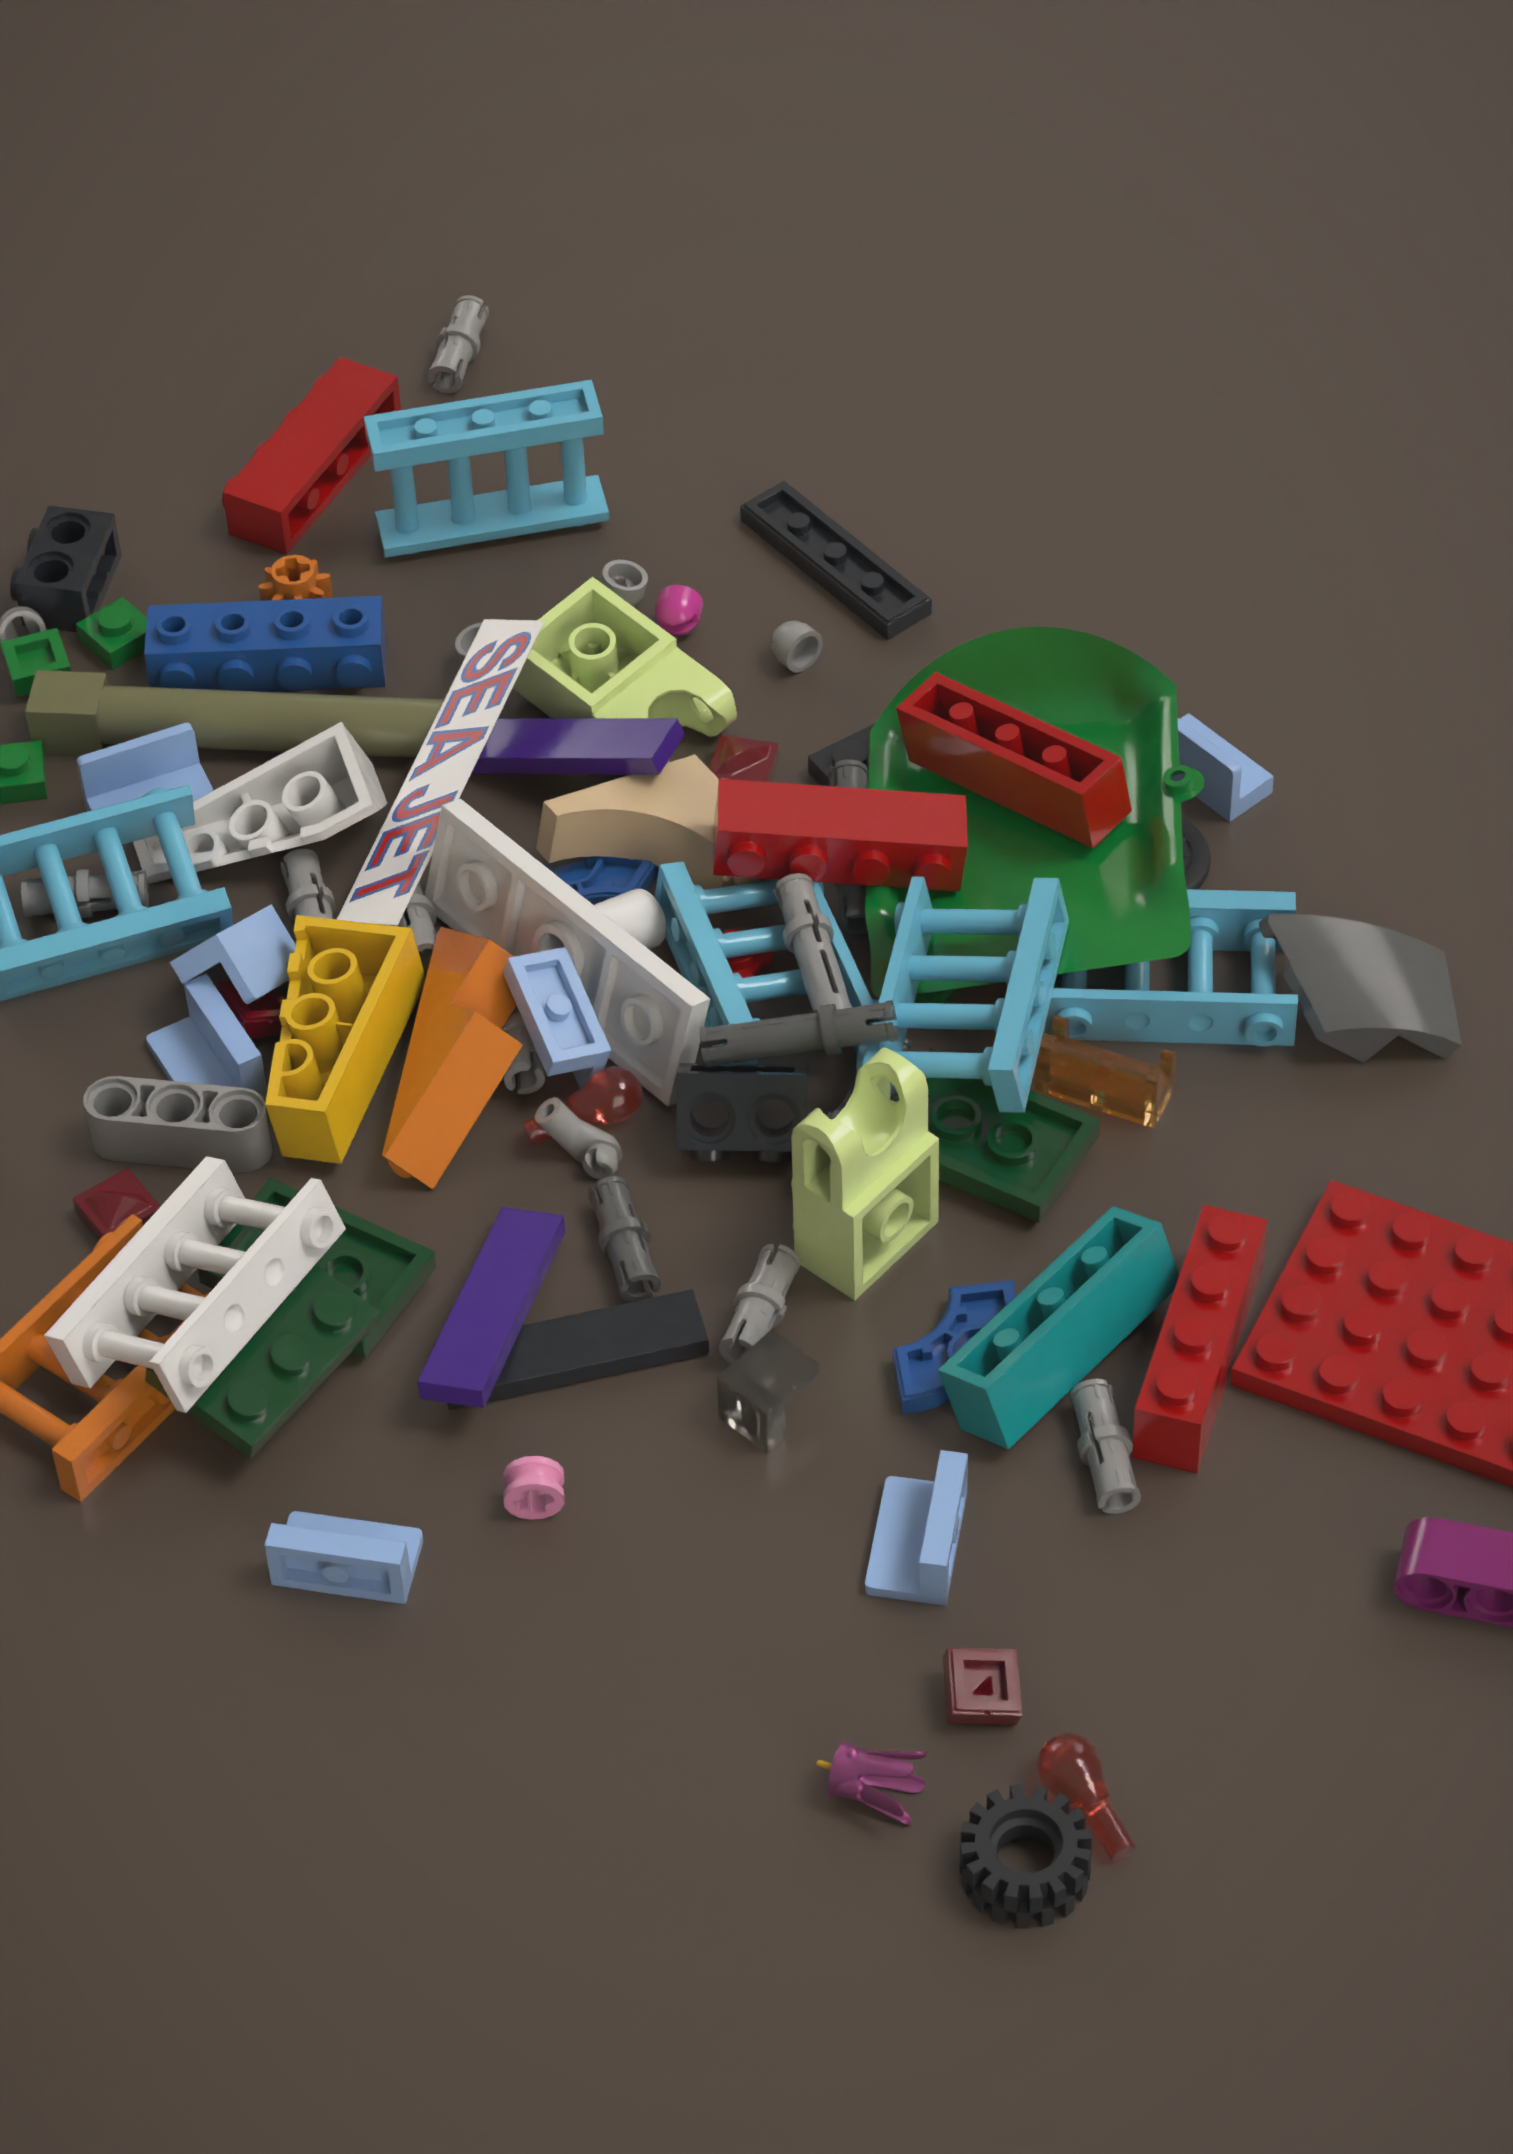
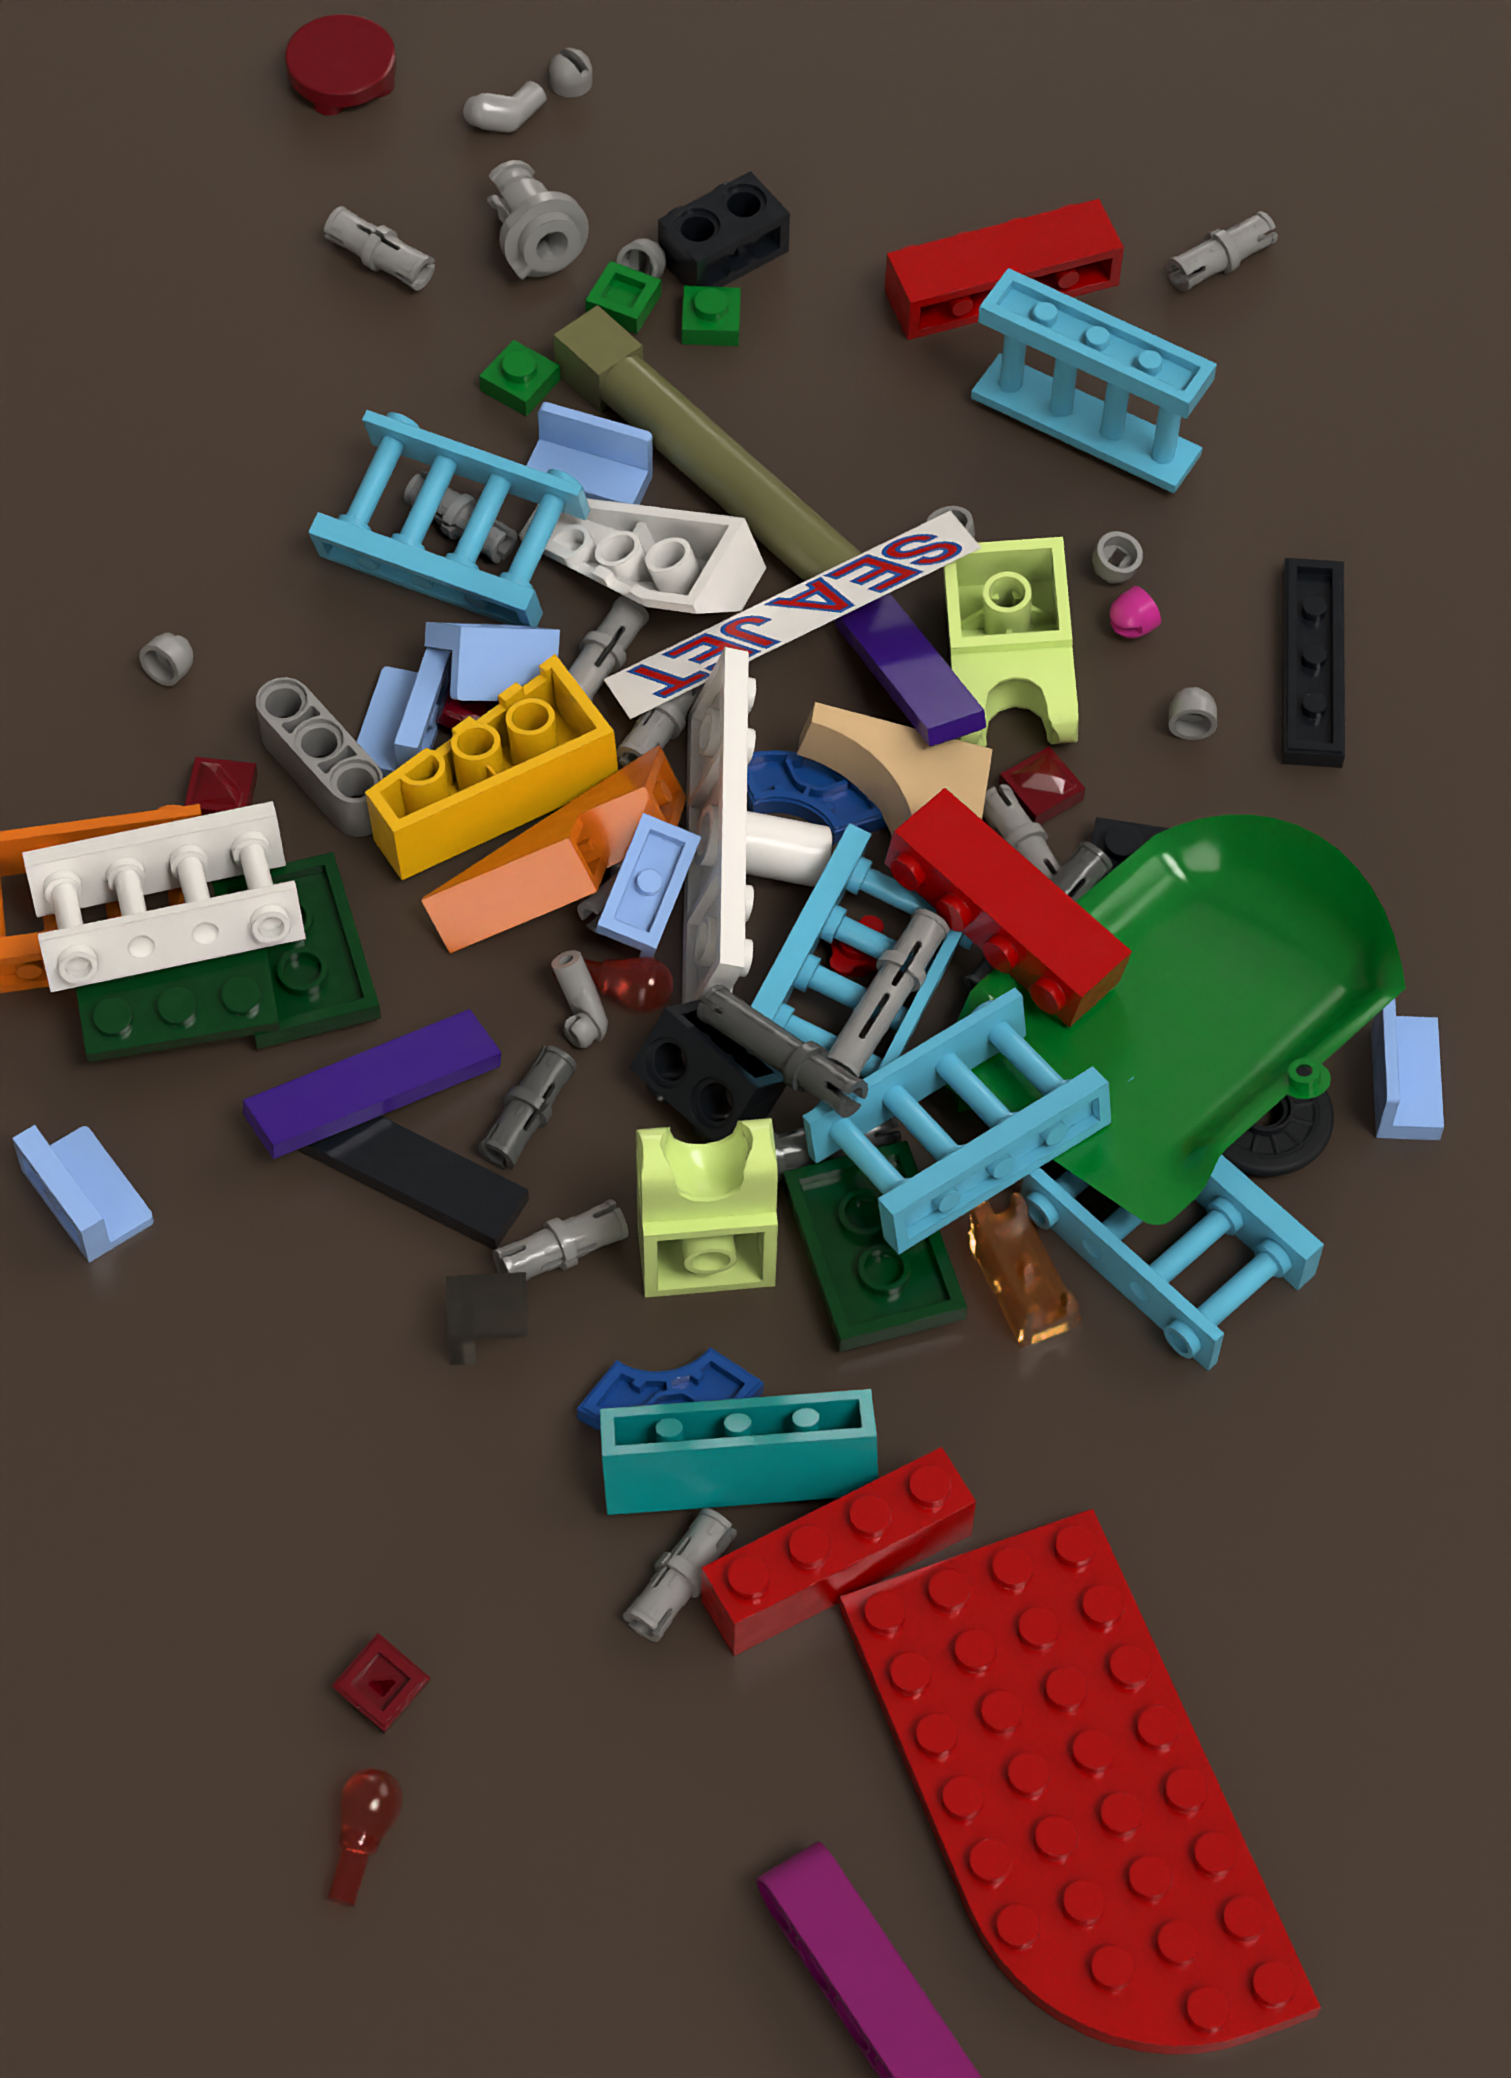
camera: 40 degrees right, 10 degrees up
(268, 645) = (795, 410): blue brick -> none
(295, 579) = (865, 377): orange gear -> none
(533, 1487) = (250, 1250): bright pink bush -> none
(859, 1770) = (227, 1680): flat silver piece -> none
(919, 1534) = (476, 1525): light blue panel -> none
(1014, 759) = (1208, 951): red brick -> none
(1020, 1891) = (271, 1881): black tyre -> none
(1366, 984) = (1303, 1370): dark grey slope -> none

